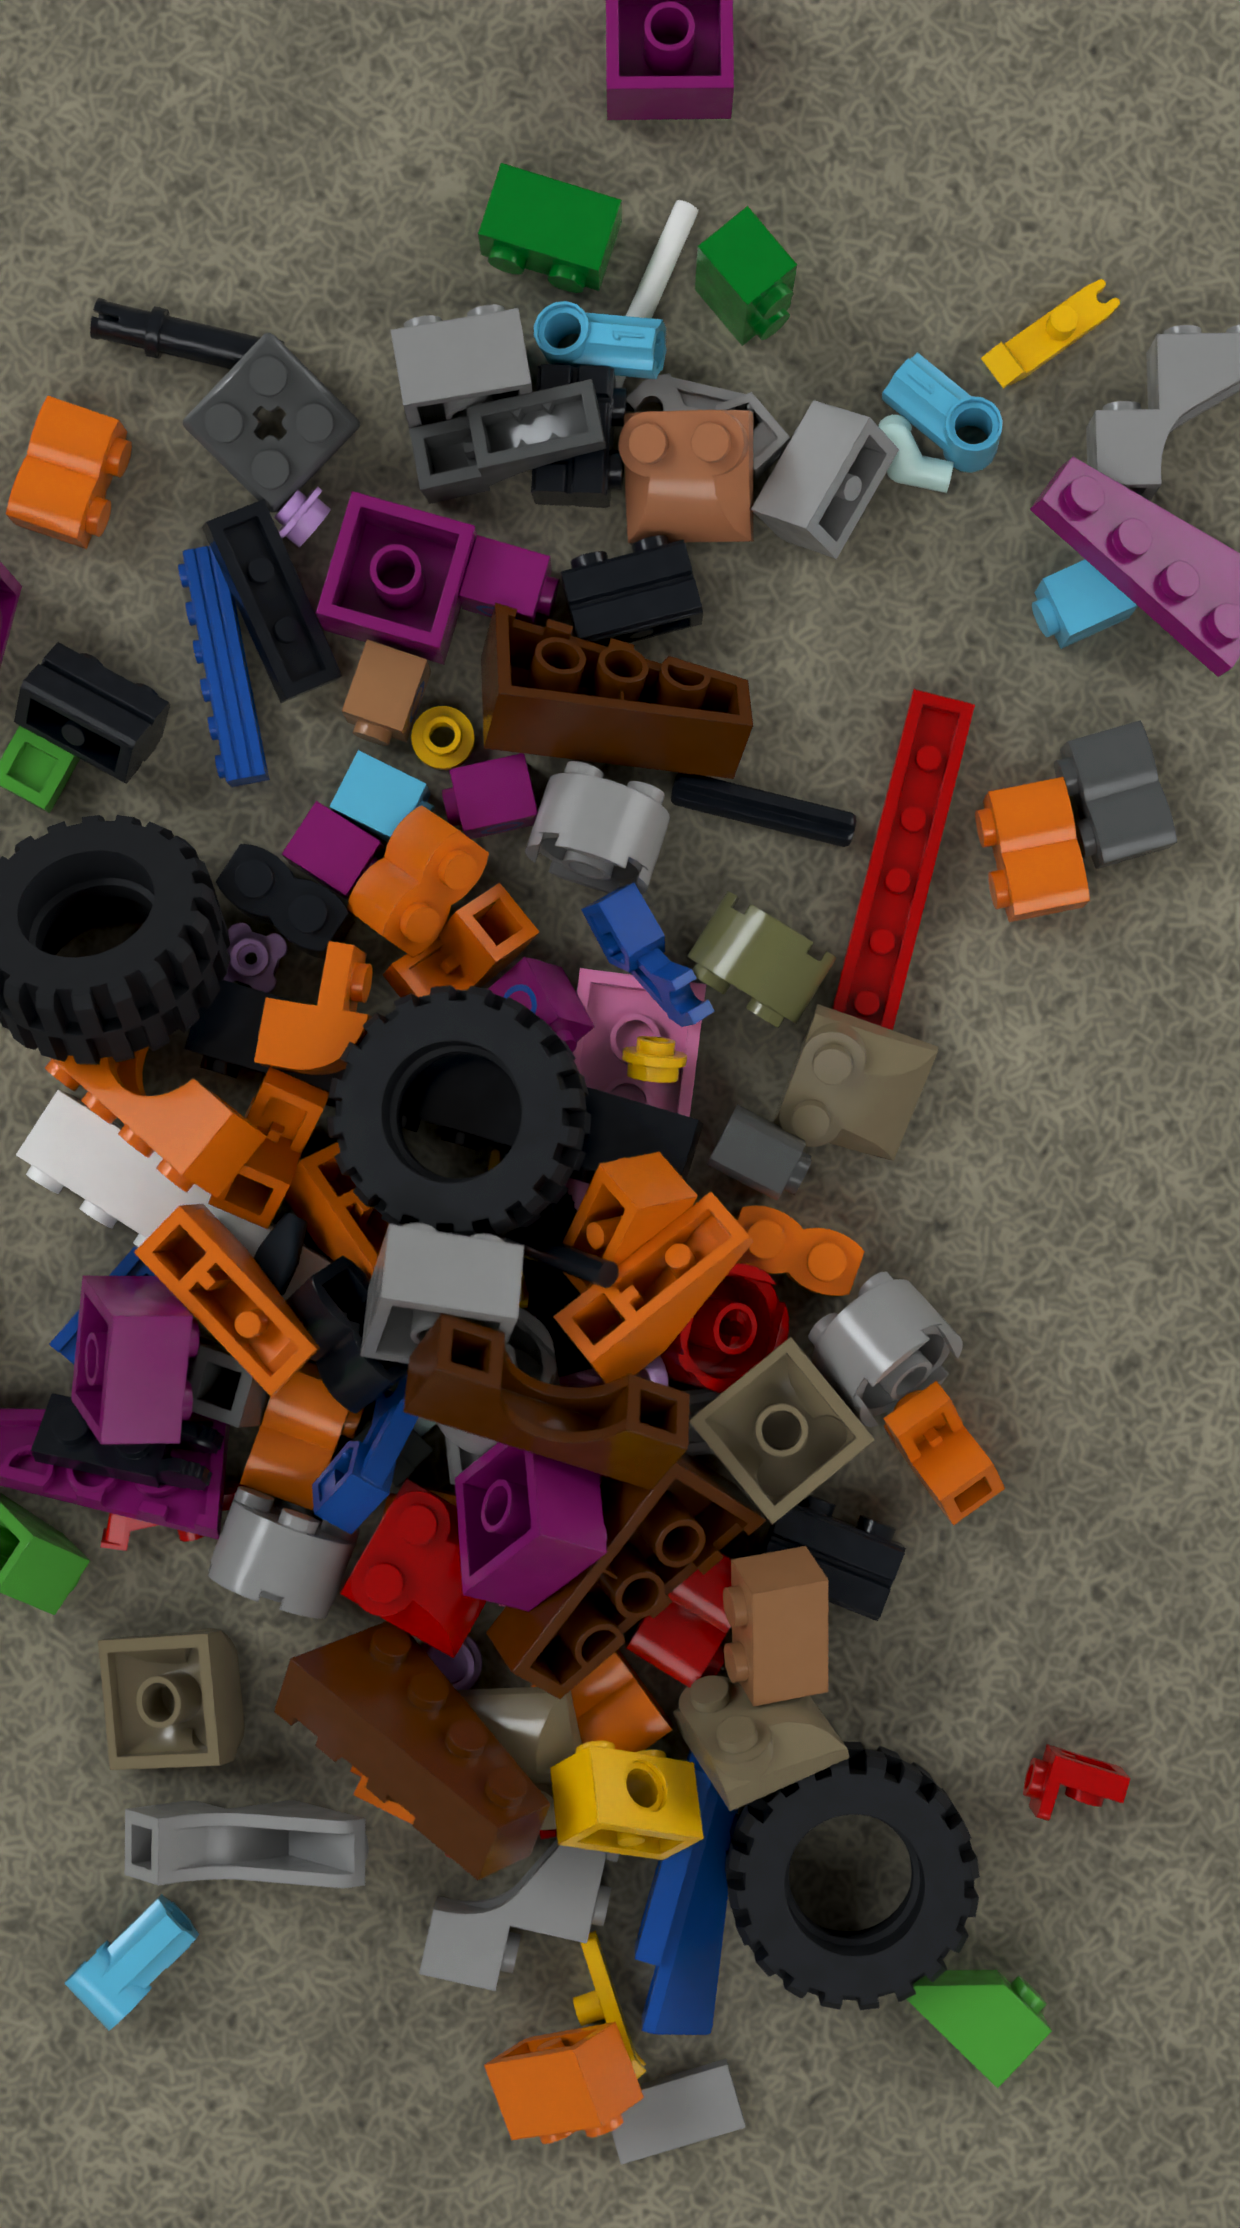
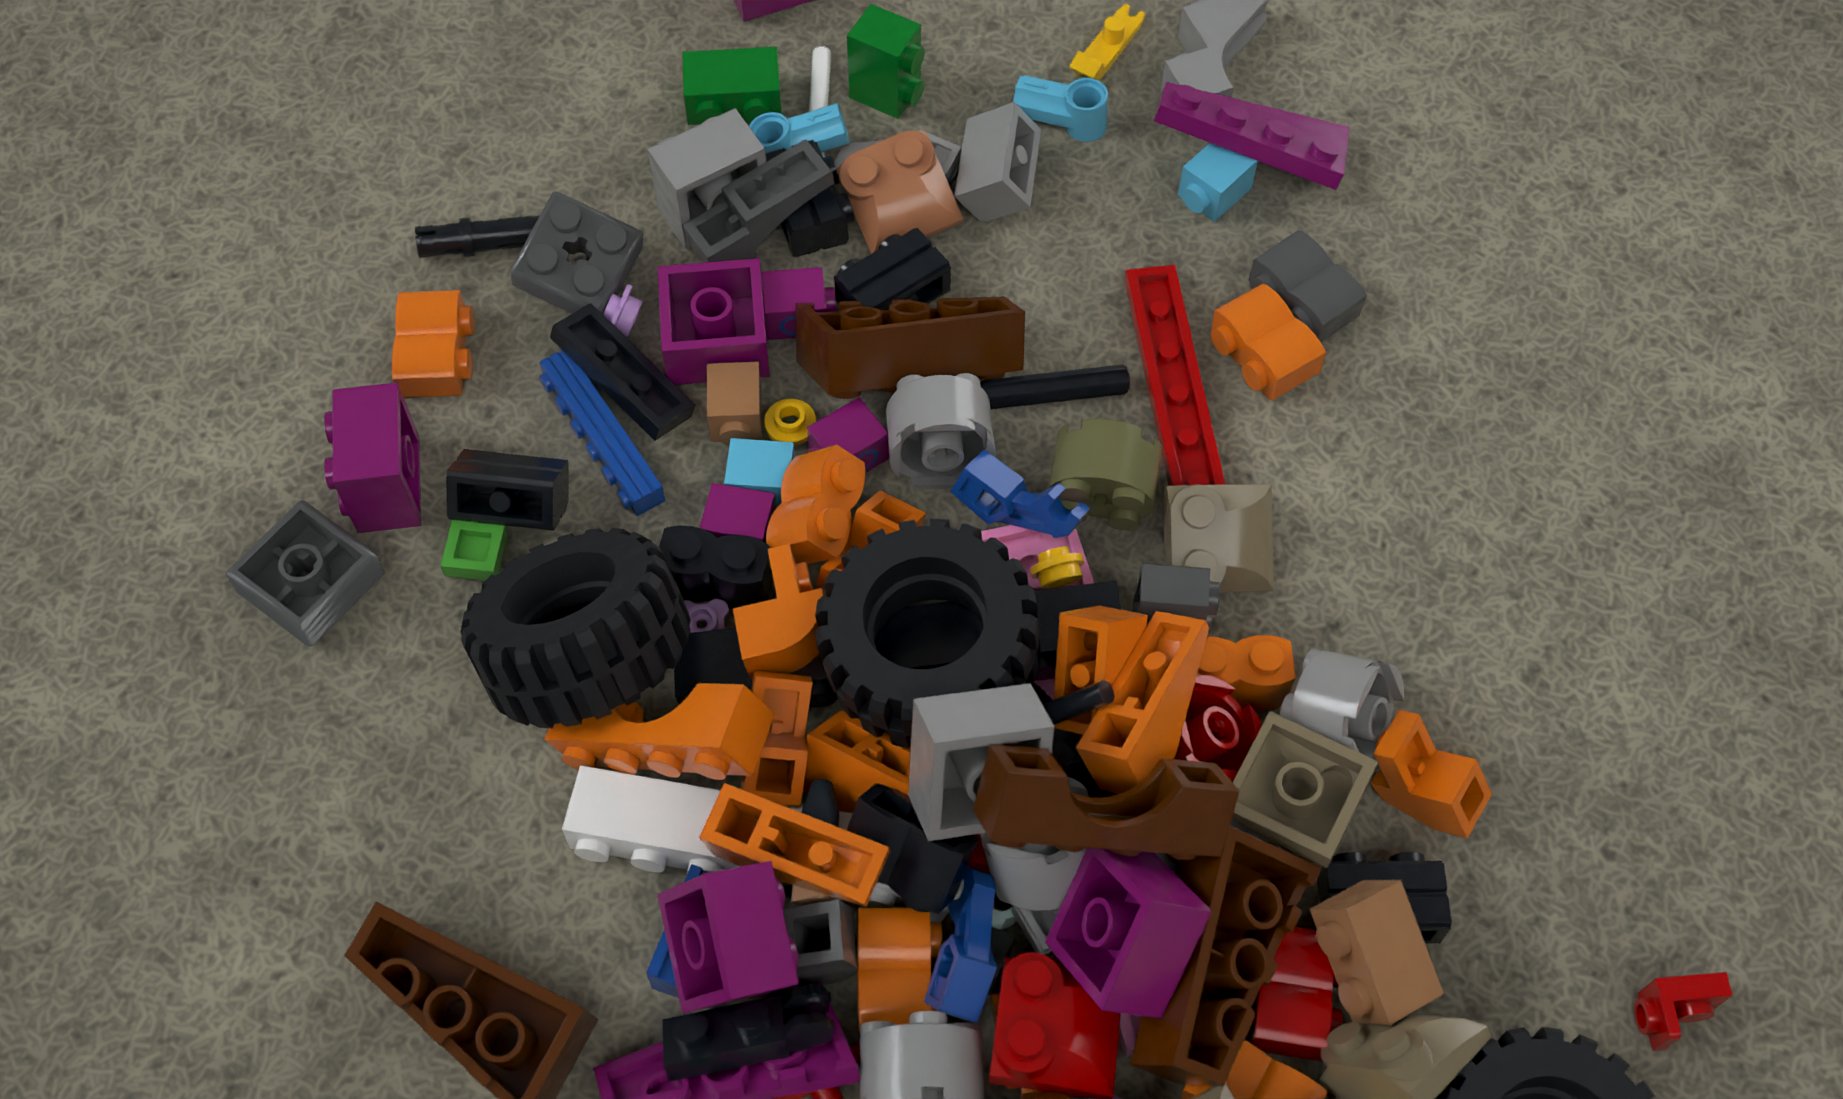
camera: 25 degrees left, 25 degrees down
(909, 464) = (1057, 147): light aqua arm -> none

